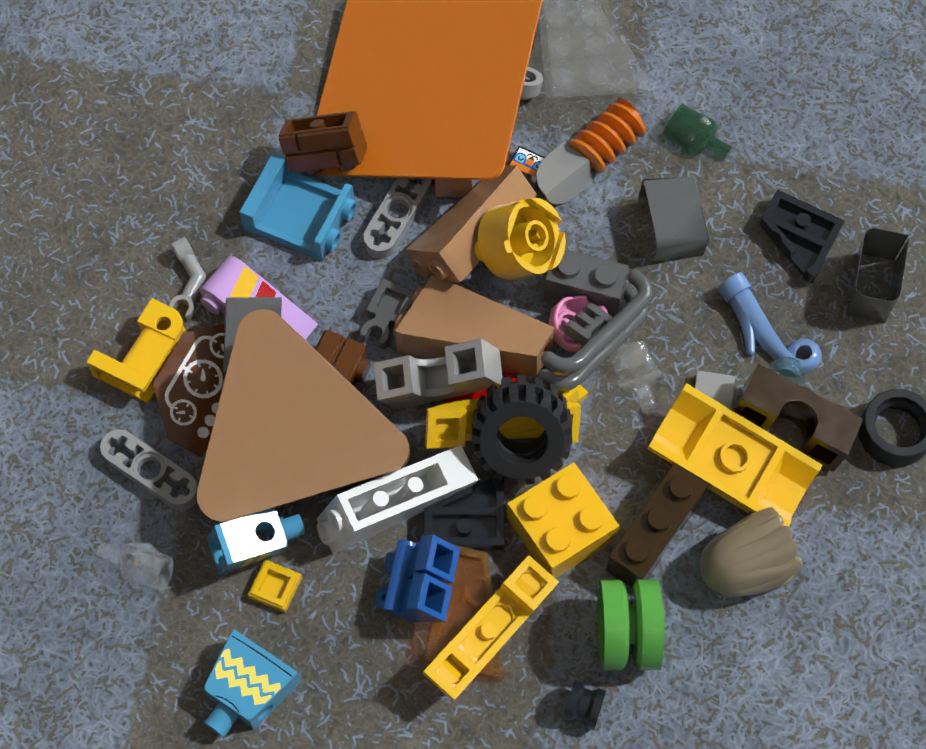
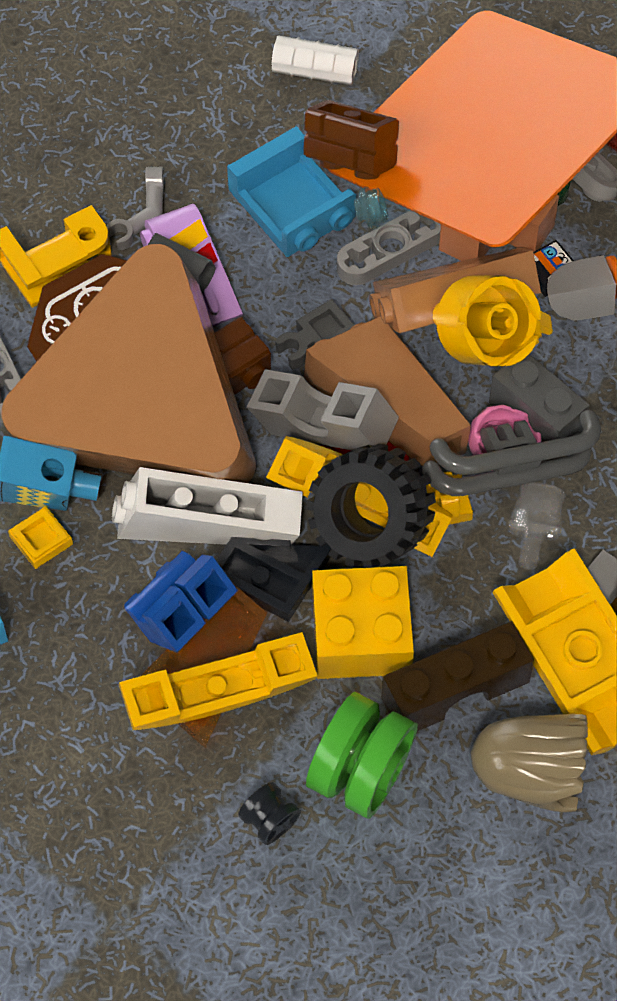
camera: 30 degrees right, 5 degrees down
(248, 89) = (315, 60): none -> white axle
(369, 190) = (371, 207): none -> clear light blue plate

